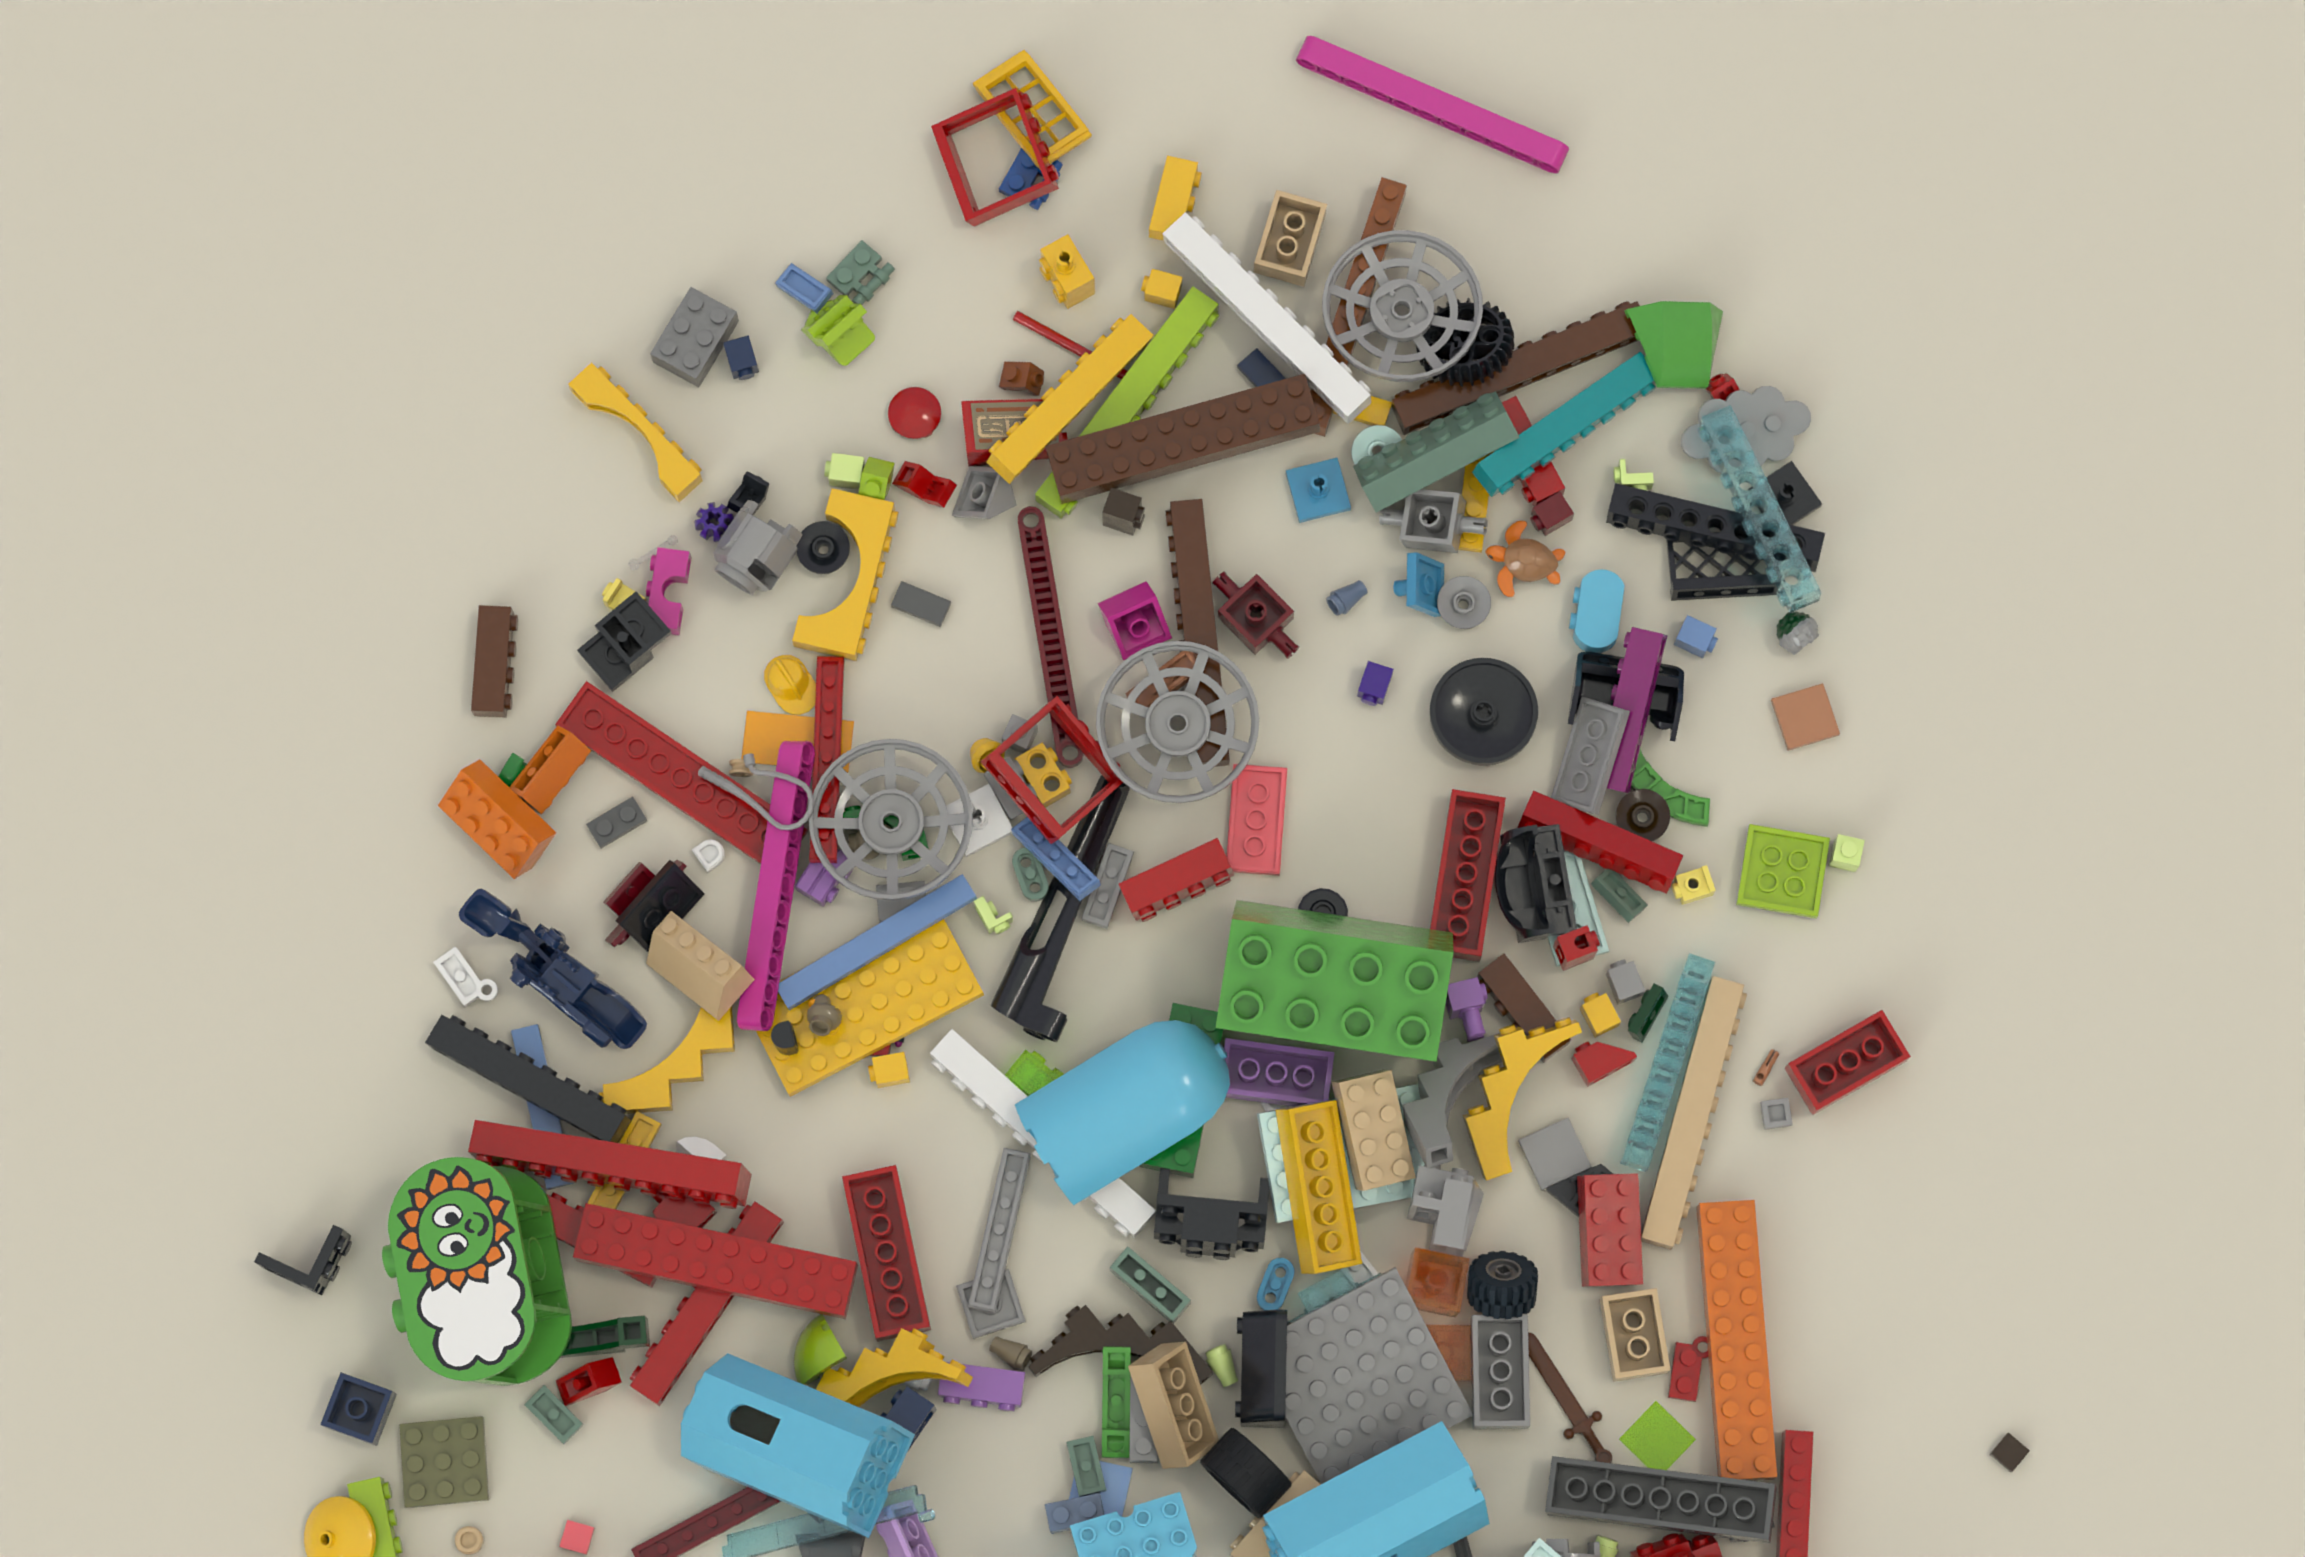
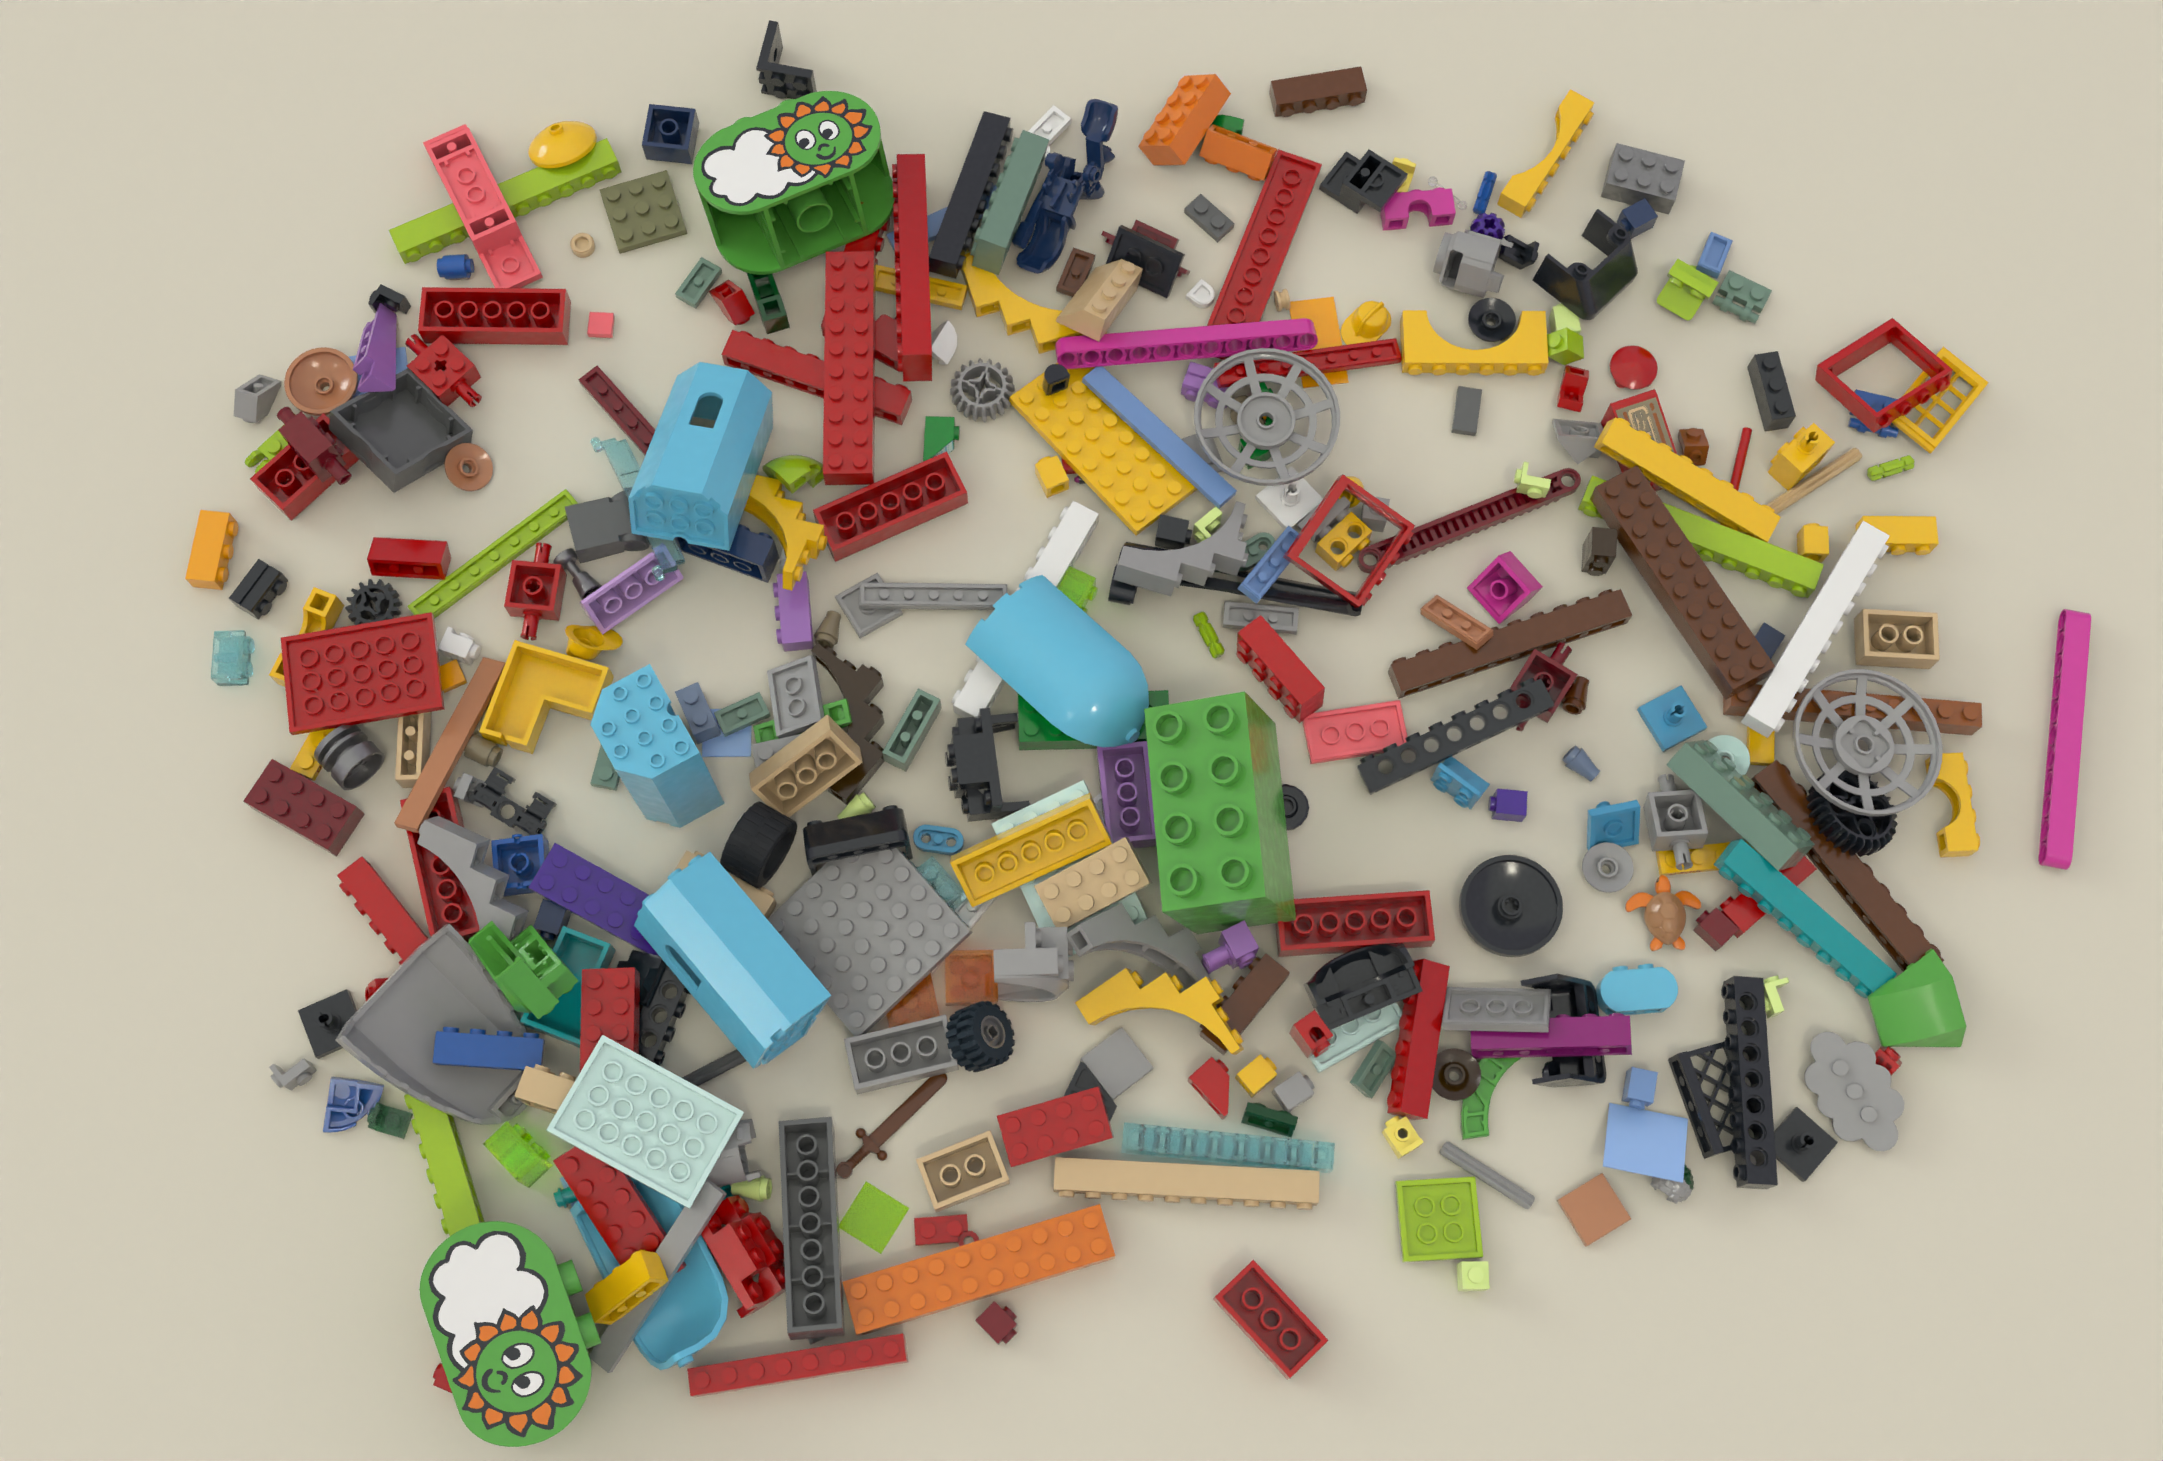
camera: 75 degrees right, 5 degrees down
(555, 1038) = (1008, 202): none -> sand green brick
(650, 986) = (1075, 272): none -> reddish brown plate
(664, 511) = (1484, 192): none -> blue axle
(749, 761) = (1262, 286): light grey piece -> none
(762, 1134) = (966, 383): none -> light grey gear
(815, 1184) = (939, 436): none -> green slope
(821, 444) = (1589, 290): none -> black windscreen
(822, 1015) = (1082, 404): dark tan animal -> none
(981, 277) = (1771, 391): none -> black brick
(991, 954) = (1172, 532): none -> black brick
(1035, 559) = (1532, 486): none -> yellowish green bracket
(1045, 970) = (1165, 569): none -> light grey arch
(1083, 1402) = (795, 696): none -> light grey plate
(1089, 256) = (1815, 480): none -> tan axle
(1096, 181) = (1890, 468): none -> lime axle
(1112, 945) = (1208, 634): none -> lime axle
(1172, 705) = (1426, 621): light grey dish -> none
(1276, 580) = (1576, 696): none -> reddish brown cone
(1284, 623) = (1539, 703): none -> black brick
(1337, 726) = (1459, 782): none -> dark azure bracket
(1509, 242) = (1959, 836): none -> yellow arch
(1725, 423) = (1852, 1063): clear light blue brick -> none
(1749, 811) = (1487, 1175): none -> light grey axle
(1753, 647) = (1645, 1142): none -> light blue piece
(1764, 1070) = (1246, 1244): nougat pin -> none
(1776, 1113) = (1205, 1262): light grey plate -> none
(1792, 1334) = (998, 1323): none -> dark red brick

